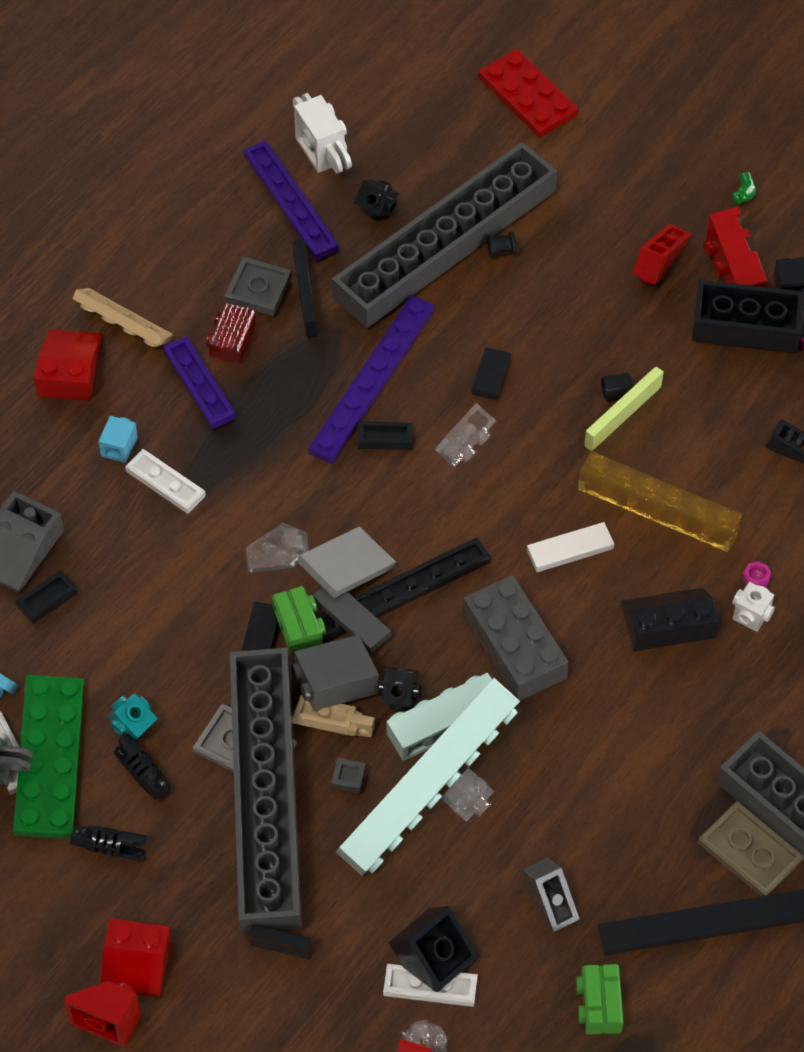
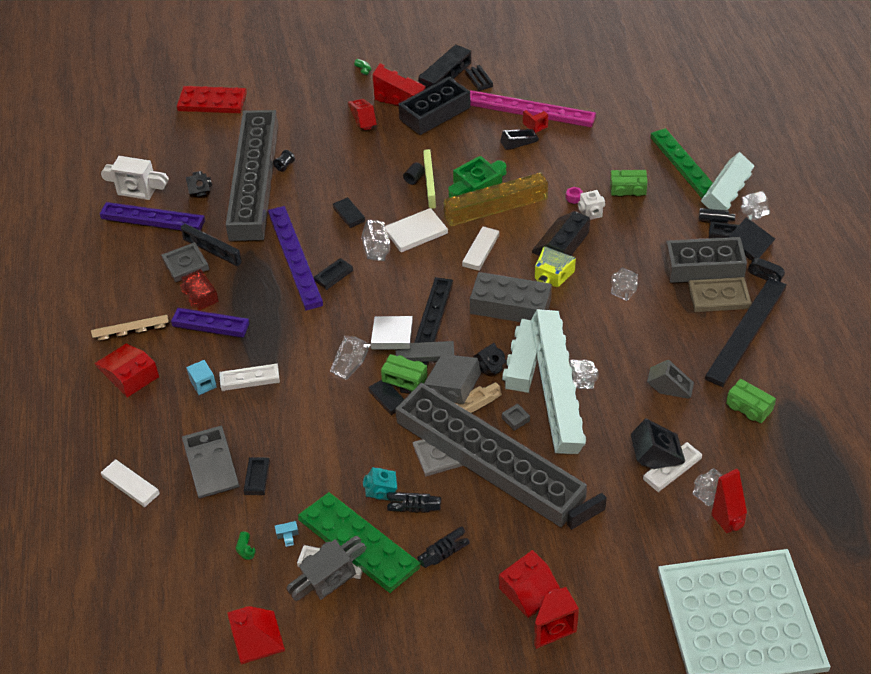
camera: 45 degrees left, 10 degrees down
(532, 460) = (416, 230): none -> white tile
(608, 644) = (554, 267): none -> neon yellow torso
(656, 735) = (624, 283): none -> clear brick
(670, 446) = (476, 176): none -> green brick

